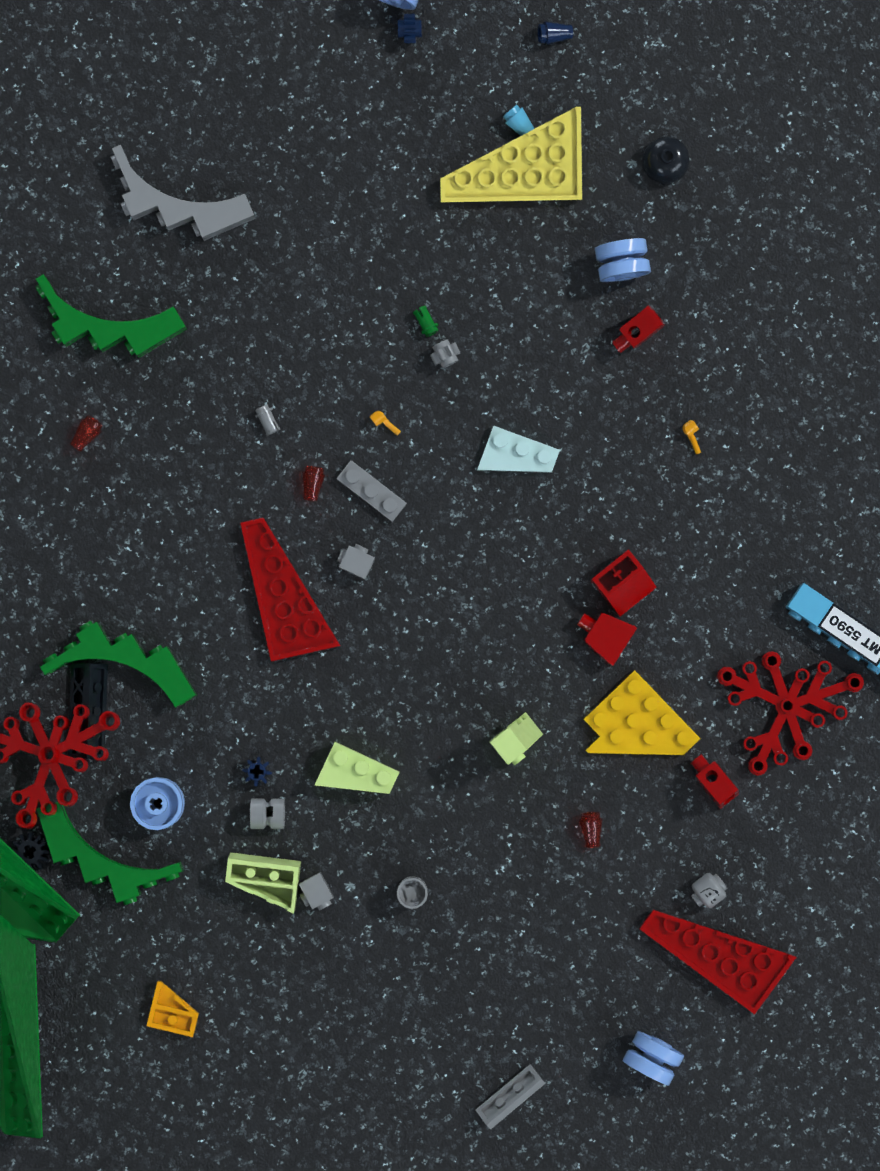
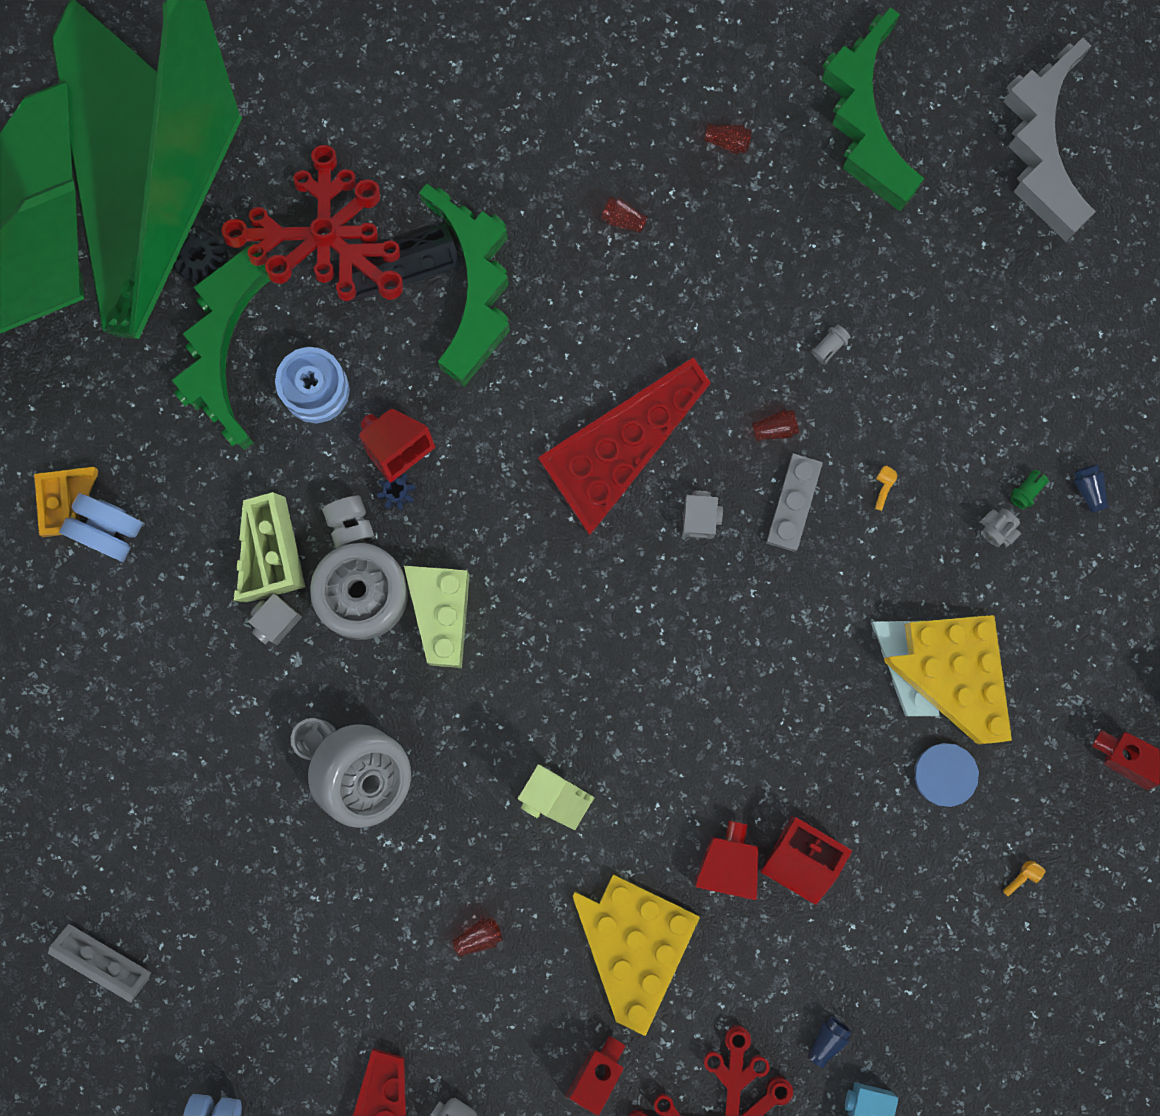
camera: 70 degrees right, 5 degrees down
(115, 532) = (622, 215): none -> clear red cone
(203, 988) = (101, 526): none -> light blue wheel
(222, 759) = (395, 442): none -> red torso
(339, 823) = (374, 611): none -> light grey wheel
(440, 276) = (1092, 487): none -> dark blue cone
(450, 869) = (359, 776): none -> light grey wheel
(535, 424) = (959, 673): none -> yellow wing
(602, 461) = (946, 774): none -> medium blue tile
(751, 614) = (830, 1040): none -> dark blue cone

